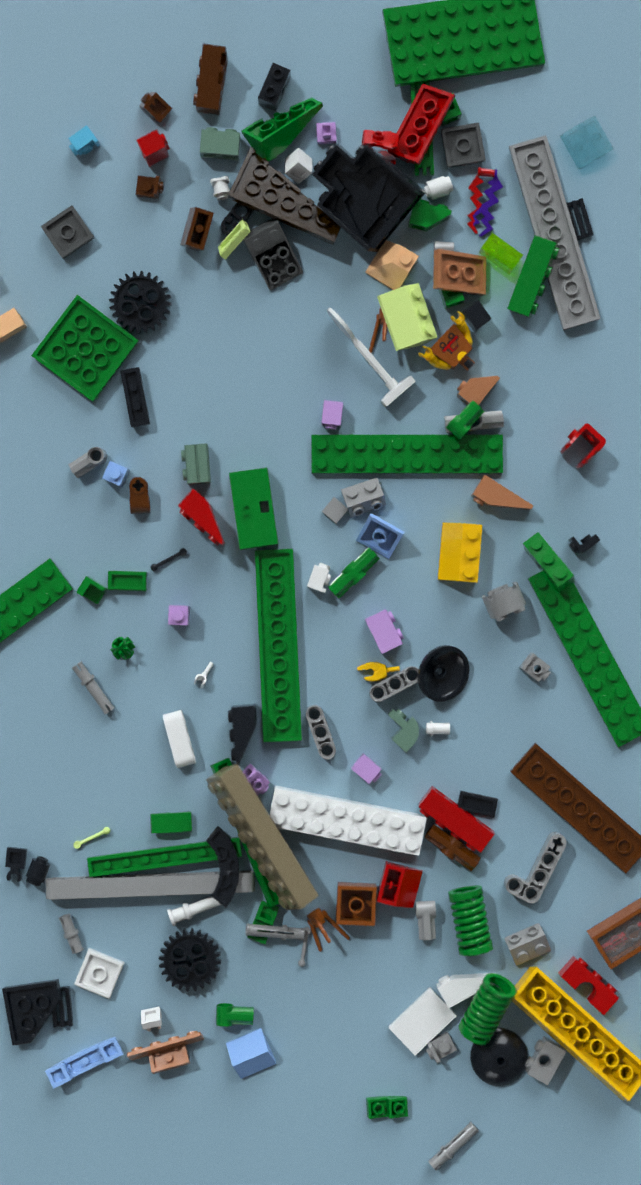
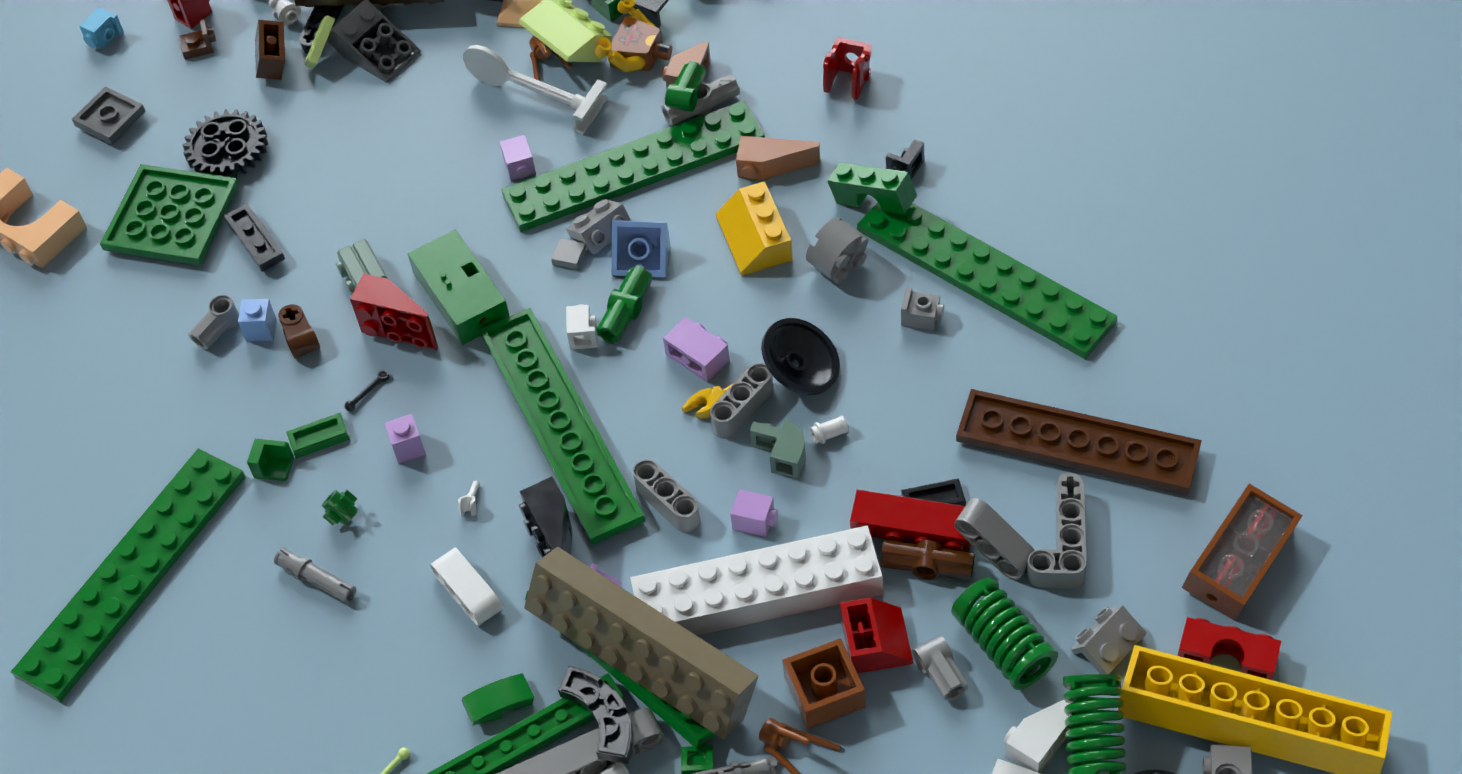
camera: 15 degrees left, 35 degrees down
(495, 859) = (994, 538): none -> light grey beam

